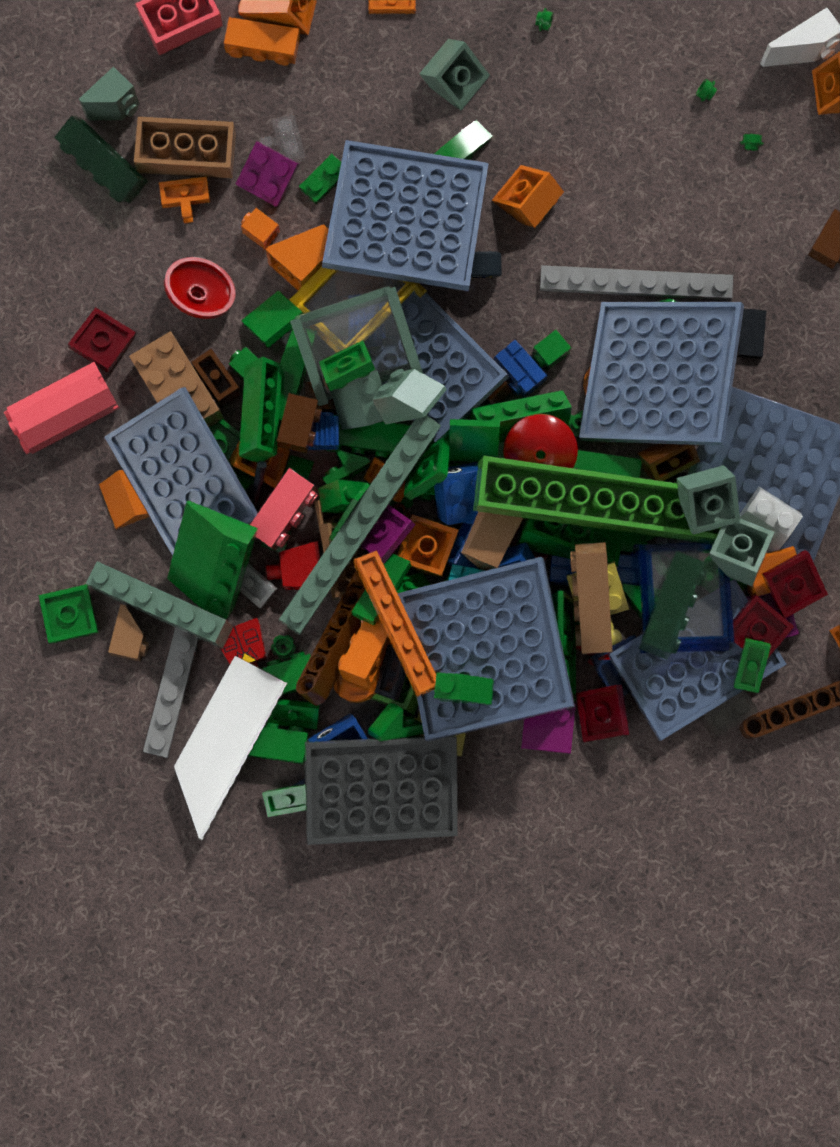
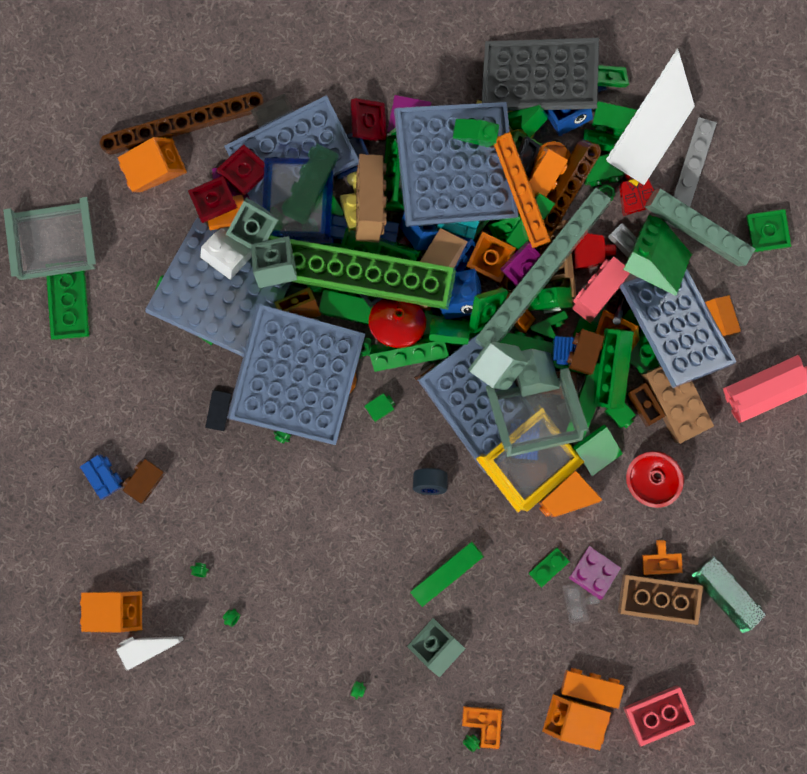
camera: 175 degrees left, 5 degrees up
(101, 340) = (733, 446): dark red plate -> none
(110, 98) = (718, 645): sand green slope -> none
(127, 637) = (723, 208): medium nougat slope -> none
(259, 228) = (604, 528): orange brick -> none
(347, 366) = (545, 393): green plate -> none
(356, 499) = (550, 279): green window -> none
(405, 215) = (488, 519): sand blue plate -> none
(521, 368) = (406, 394): blue brick -> none
(528, 195) = (386, 538): orange slope -> none
(636, 282) = (305, 459): light grey plate -> none
(752, 665) = (252, 142): green plate -> none

